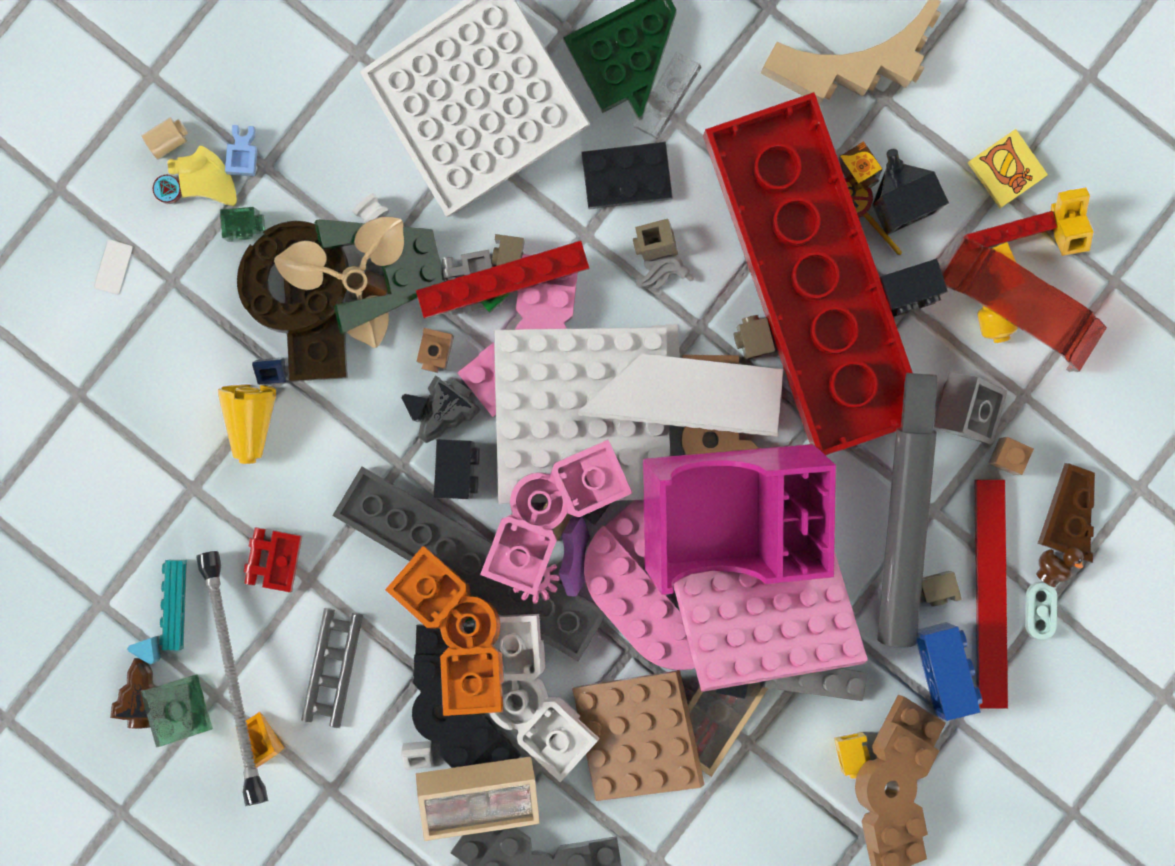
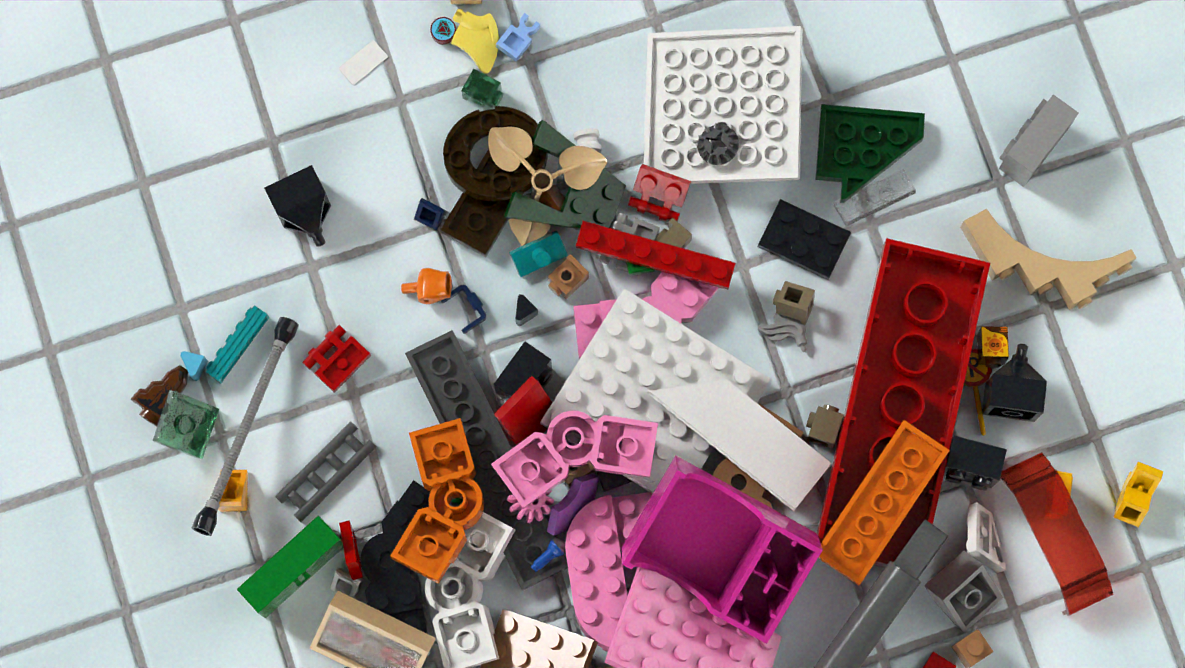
camera: 35 degrees right, 10 degrees down
(144, 439) = (301, 203): none -> black piece
(247, 418) = (388, 238): yellow cone -> none
(315, 438) = (431, 286): none -> orange piece
(359, 778) = (291, 567): none -> green brick
(364, 426) = (474, 302): none -> dark blue piece
(394, 344) = (538, 253): none -> teal tile
(402, 727) = (351, 550): none -> red tile
(446, 408) = (547, 327): dark grey rock -> none
(467, 210) = (661, 186): none -> plate
(478, 504) = (524, 411): none -> red tile
(503, 147) = (721, 154): none -> dark grey gear
(585, 607) = (555, 549): none -> blue piece
(855, 379) = (881, 502): none -> orange plate
(958, 349) = (983, 537): none -> white wing
(994, 326) = (1023, 538): yellow head -> none
(1007, 168) = (1112, 422): light yellow tile -> none
(1014, 230) = (1087, 473): red piece -> none

